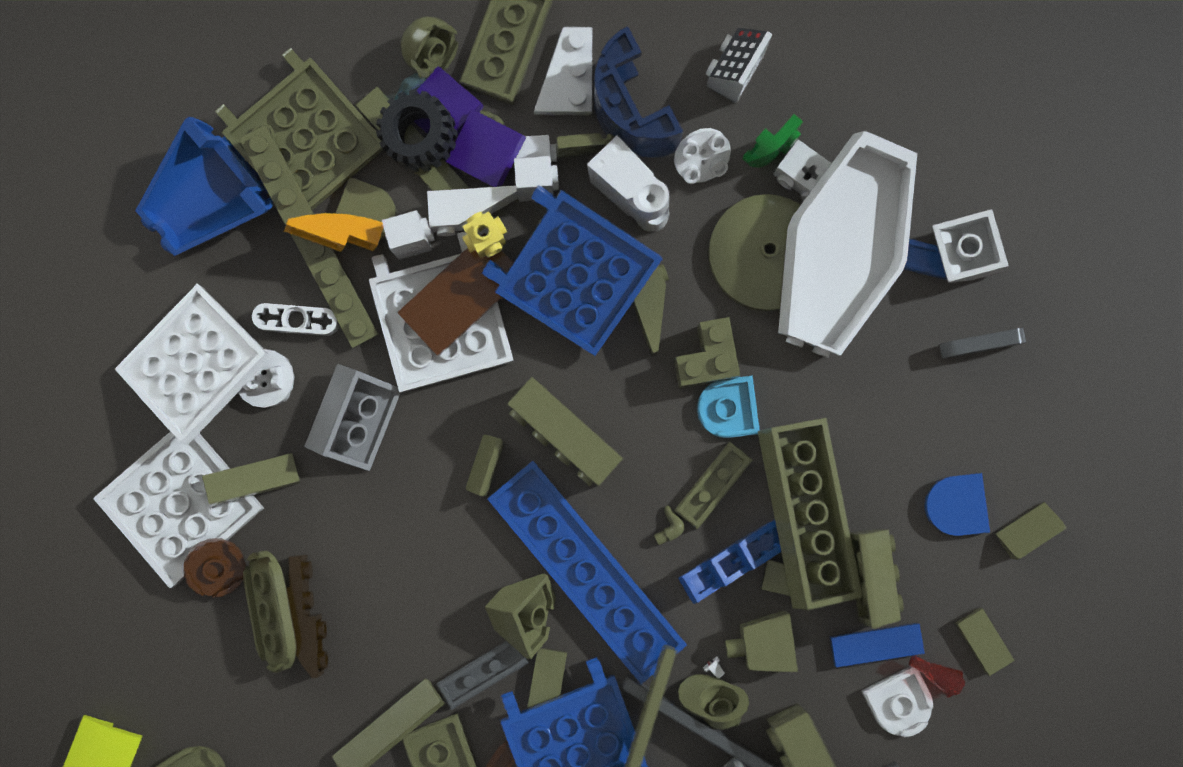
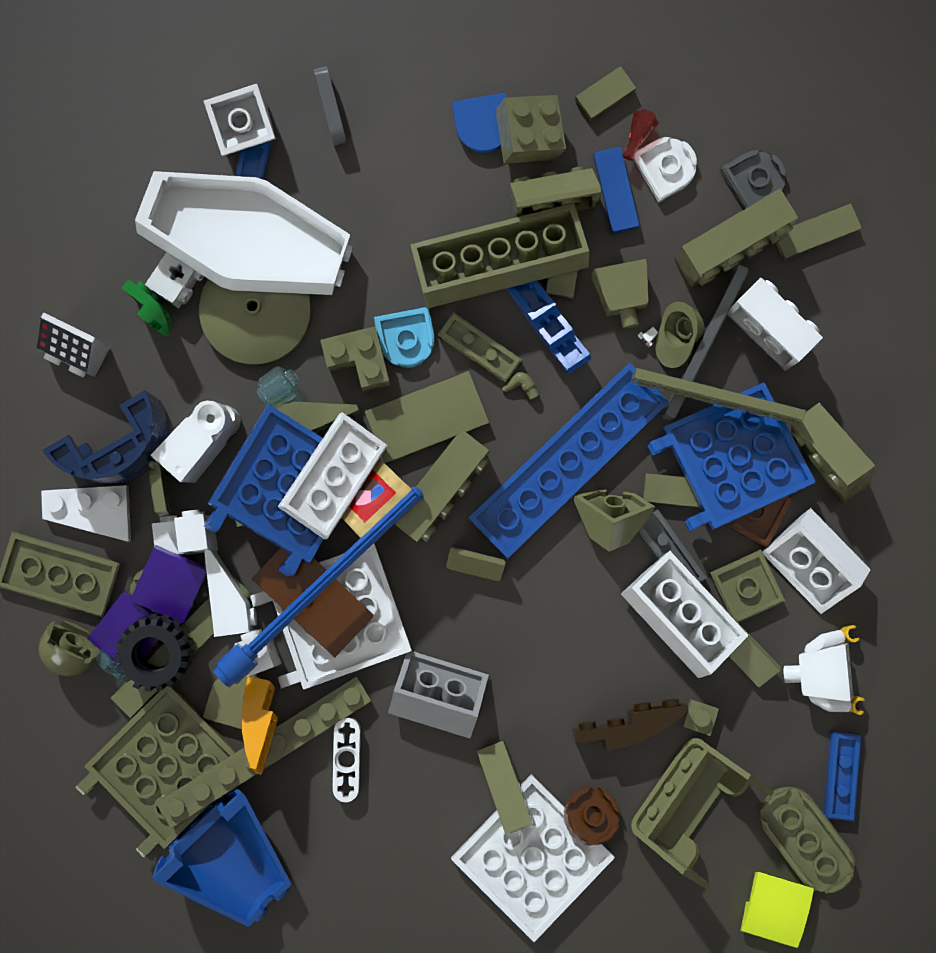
camera: 95 degrees left, 0 degrees up
(192, 364) = (397, 855): white plate -> none
(221, 664) = (682, 801): none -> olive windscreen
(269, 611) = (628, 757): olive tile -> none
(278, 379) = (408, 798): white plate -> none
(306, 690) = (700, 717): none -> olive plate
(412, 683) = (685, 615): none -> white slope
(485, 245) = (264, 580): light yellow brick -> none
(544, 358) = (370, 514): none -> blue flag
(584, 321) = (332, 476): none -> white tile
(642, 424) = (427, 417): none -> olive tile
(683, 271) = (278, 386): none -> clear light blue head
(715, 155) = (164, 374): white plate -> none
(947, 556) = (530, 129): none -> olive brick
(1030, 531) = (502, 56): olive slope -> none

